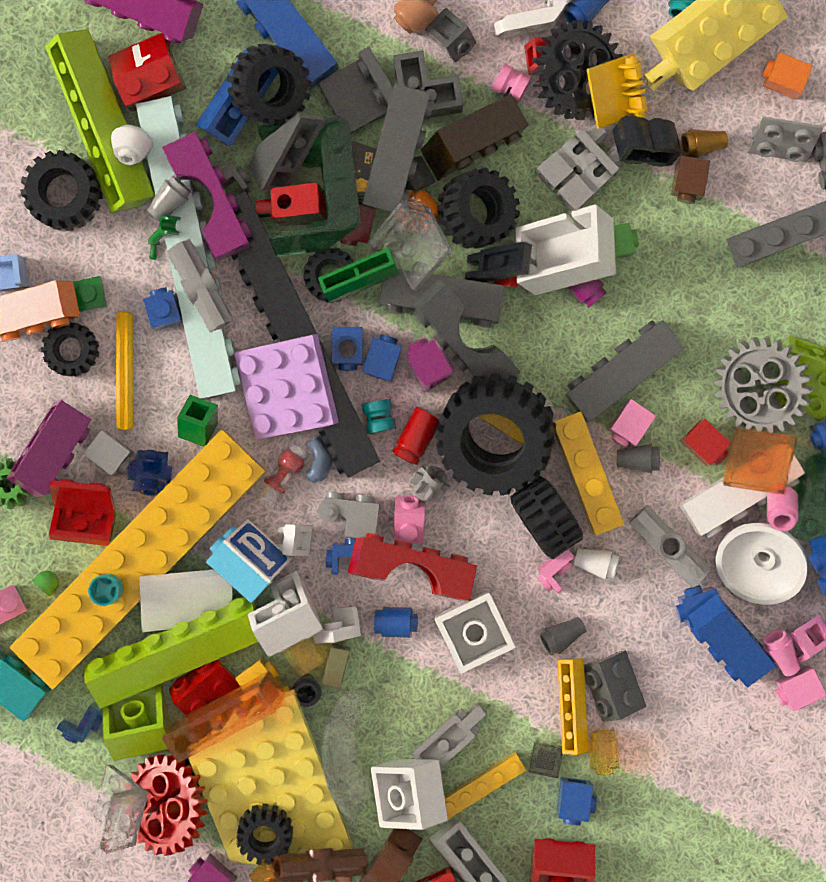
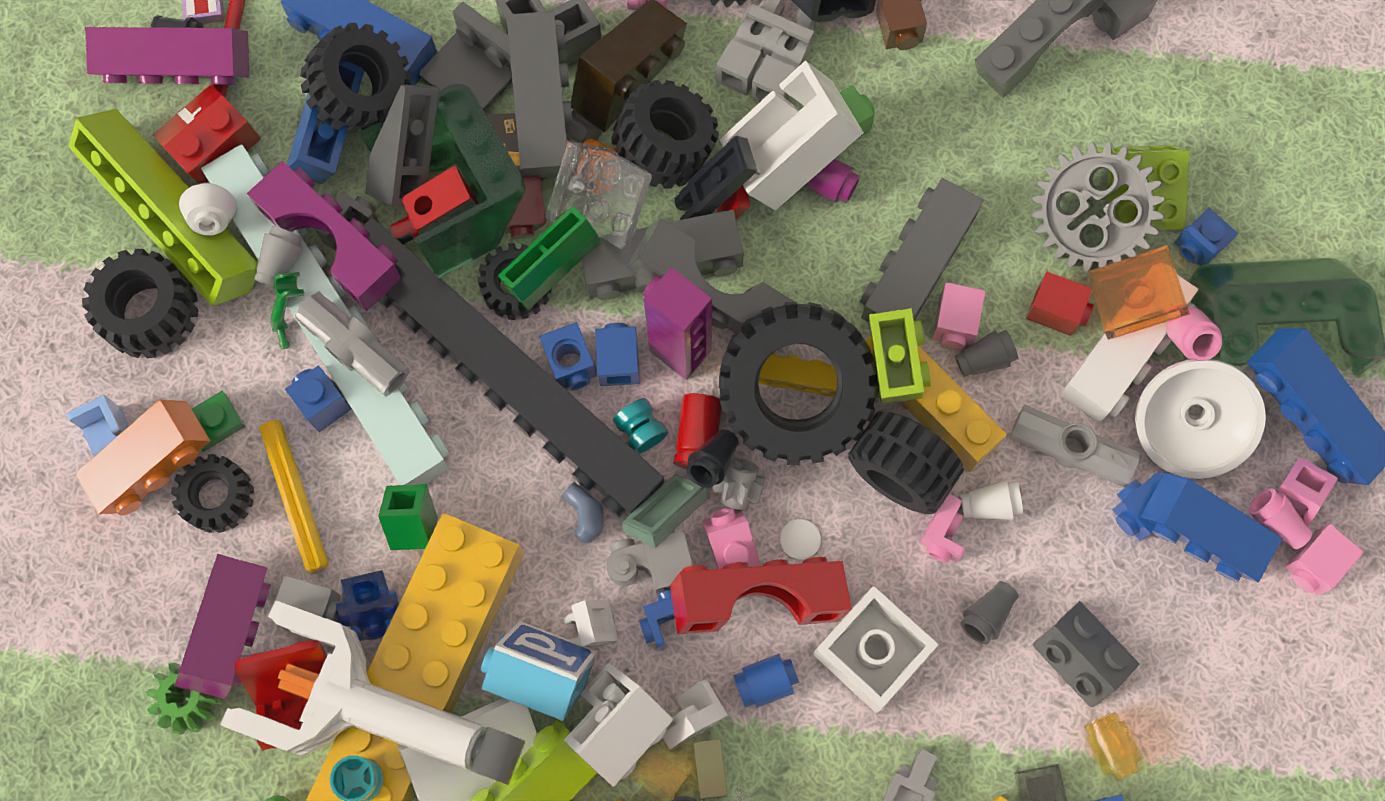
camera: 20 degrees left, 15 degrees down
(115, 534) = (345, 699): none -> white piece
(286, 387) = (508, 430): lavender plate -> none
(289, 464) = (549, 527): clear piece -> none
(372, 483) = (664, 510): none -> sand green tile
(416, 464) = (711, 461): none -> black cone
(457, 534) = (800, 539): none -> white piece
(568, 448) = (896, 355): none -> lime brick
(573, 706) = (1045, 701): yellow piece -> none

